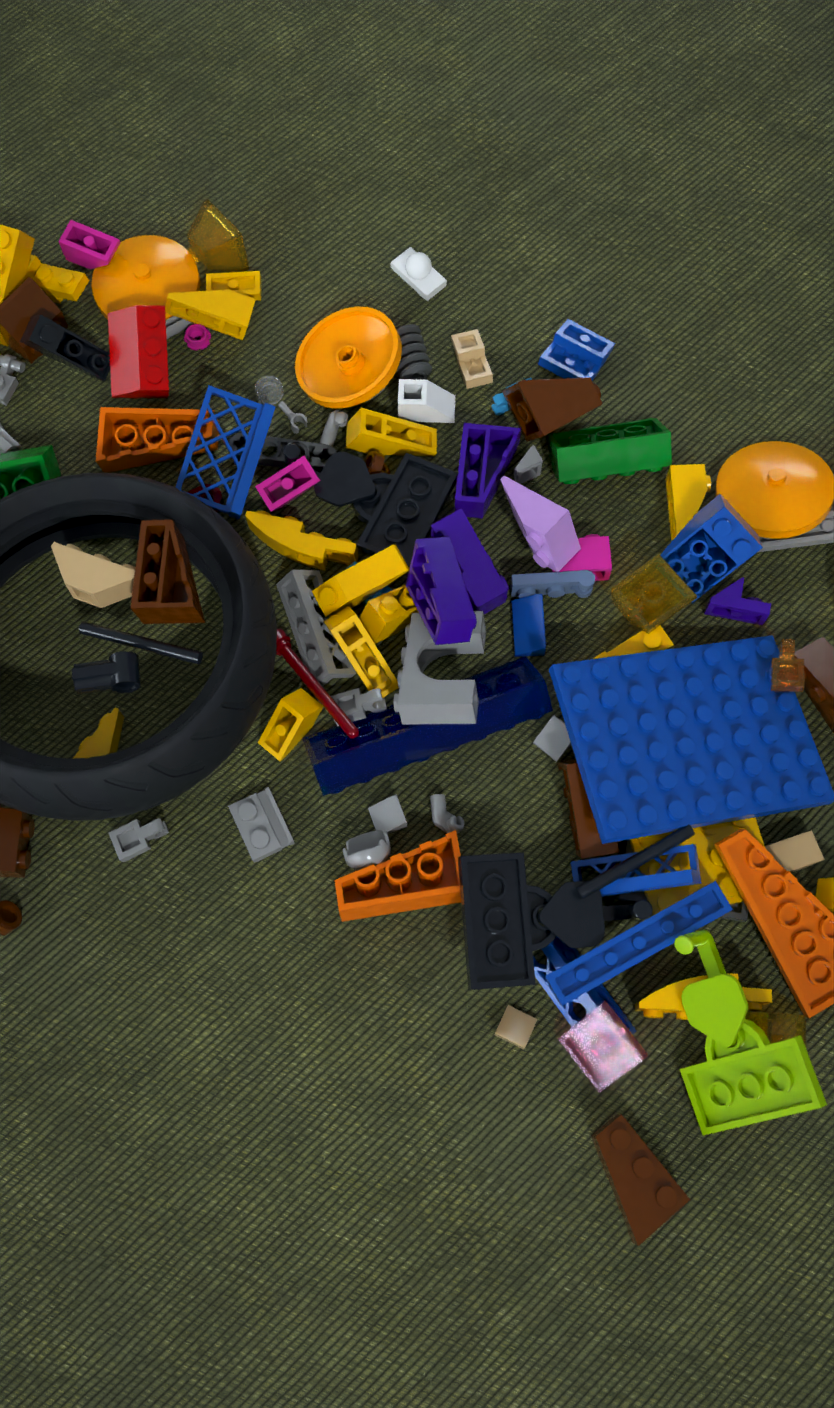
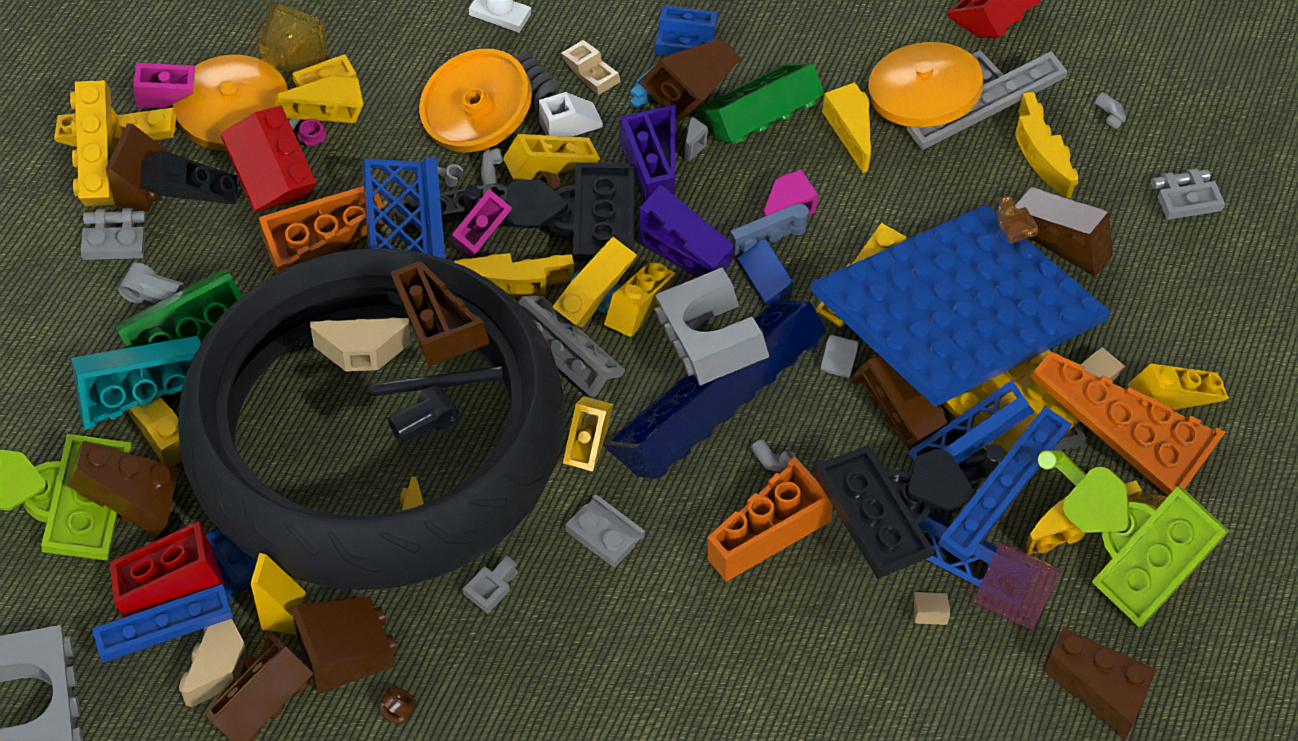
camera: 30 degrees left, 15 degrees down
(269, 389) = (408, 152): clear tile -> none
(284, 649) = (610, 394): dark red piece -> none
(355, 703) = (641, 395): light grey plate -> none
(361, 651) = (624, 344): yellow slope -> none
(367, 849) = (719, 508): light grey hair -> none
(388, 815) = (721, 477): light grey slope -> none
(440, 591) = (678, 259): dark purple wedge -> none
(543, 524) = (736, 176): lavender slope -> none
(635, 861) = (969, 415): black bar -> none
(651, 595) = (865, 203): clear yellow slope -> none
(711, 546) = (895, 149): blue slope -> none
(731, 606) = (938, 192): dark purple slope -> none

